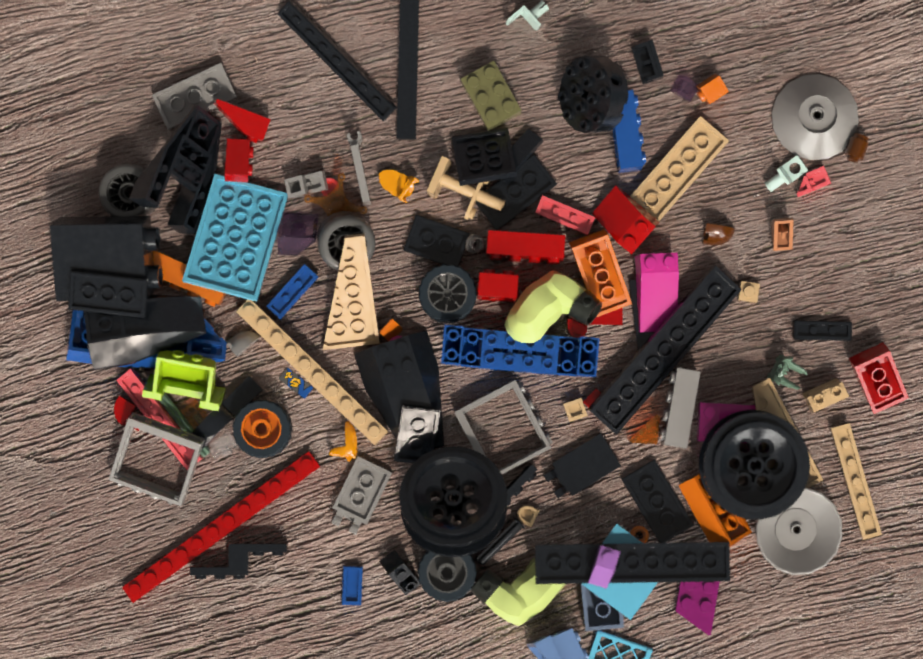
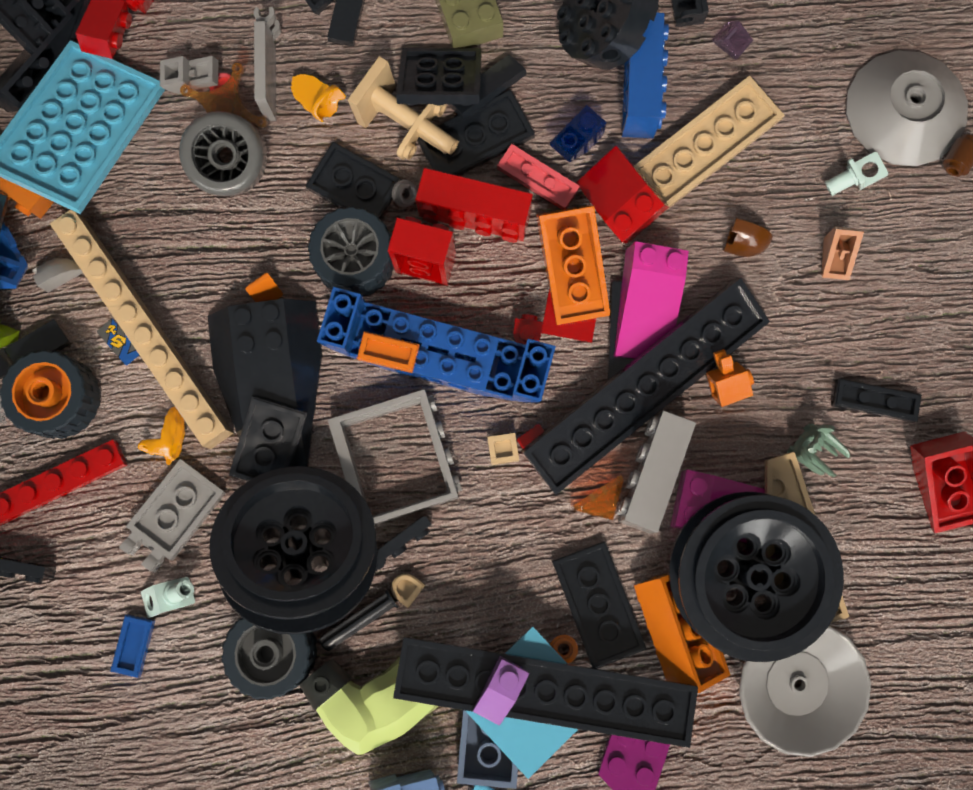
camera: 10 degrees right, 5 degrees down
(292, 291) = (140, 215): blue plate -> none
(296, 232) = (156, 136): clear purple slope -> none
(352, 309) = (214, 243): tan wing -> none
(370, 548) = (168, 596): none -> light aqua bracket
(400, 572) = (201, 638): black slope -> none
(487, 360) = (388, 352): none -> orange tile
(545, 302) = (487, 287): yellowish green piece -> none
(583, 466) = (500, 532): black tile -> none
(588, 182) = (579, 134): none -> clear blue slope
(711, 89) = (771, 42): orange brick -> none
(720, 336) = (730, 381): none -> orange brick
(749, 292) = (779, 328): tan plate -> none
(813, 181) = (894, 192): coral slope -> none
(825, 395) = (870, 493): tan window -> none
(856, 481) = (896, 629): tan plate -> none

